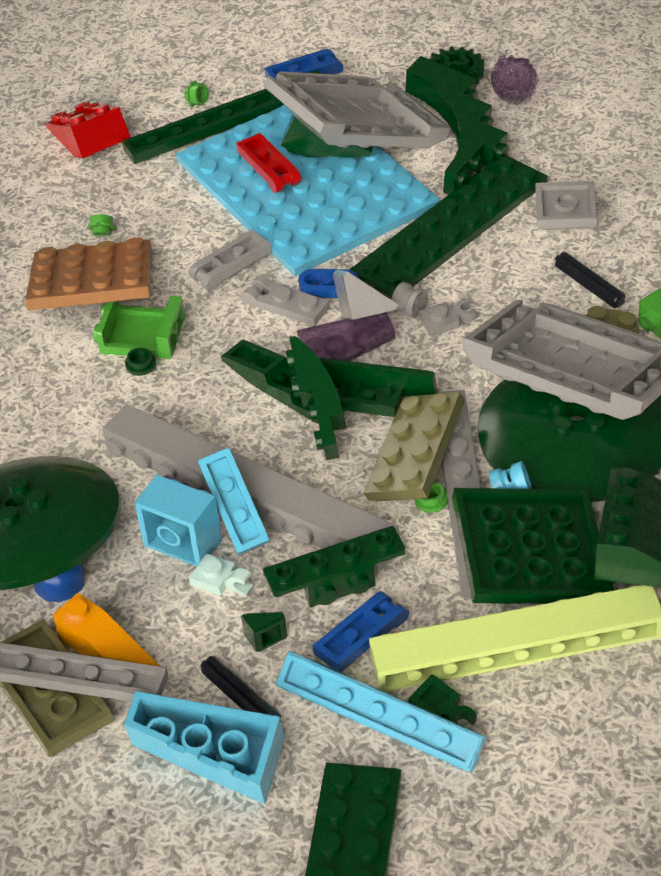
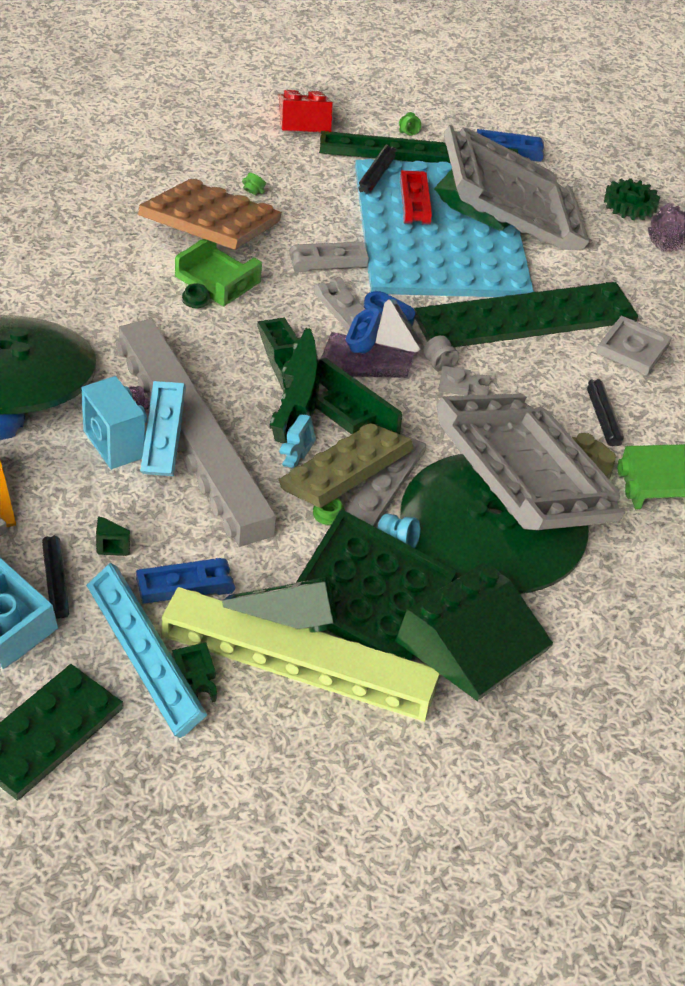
camera: 20 degrees right, 0 degrees up
(209, 153) = (377, 169): none -> black axle
(220, 574) = (116, 480): light aqua plate -> none
(331, 313) = (363, 330): none -> blue plate
(335, 569) = (201, 522): dark green bracket -> none
(351, 444) = (299, 441): none -> medium azure plate
(470, 119) = (609, 222): dark green arch -> none
(489, 595) = (295, 604): none -> slope

